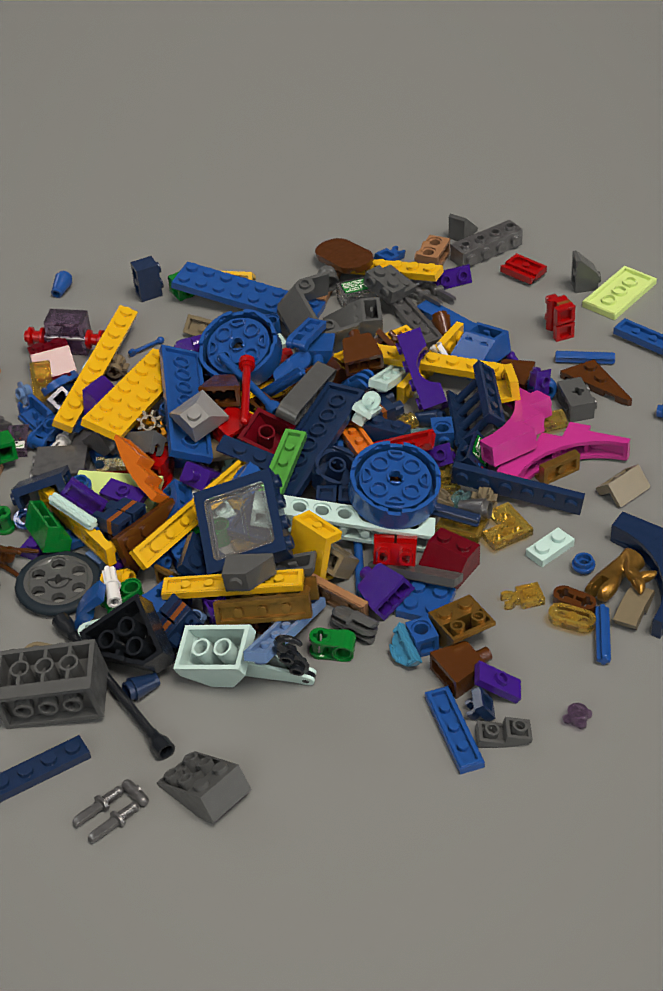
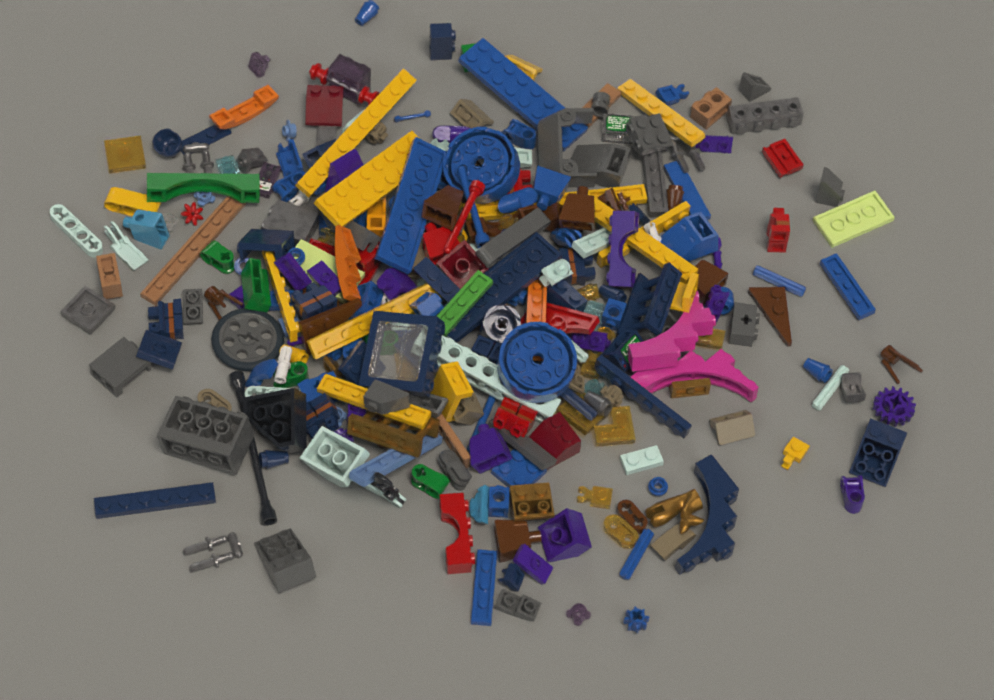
camera: 15 degrees right, 15 degrees up
(40, 376) = (308, 125): clear yellow plate -> none
(57, 383) = (320, 138): blue tile -> none
(72, 511) = (278, 283): light aqua axle -> none
(156, 420) = (377, 219): dark tan gear -> none
(199, 415) = (414, 228): light grey slope -> none
(284, 382) = (501, 216): blue axle -> none
(305, 334) = (542, 173): blue plate -> none
(344, 255) = (627, 81): reddish brown tile -> none
(378, 664) = (453, 511): none -> red arch
(515, 643) = (564, 536): none -> dark purple slope
(646, 696) = (636, 619): none -> blue gear

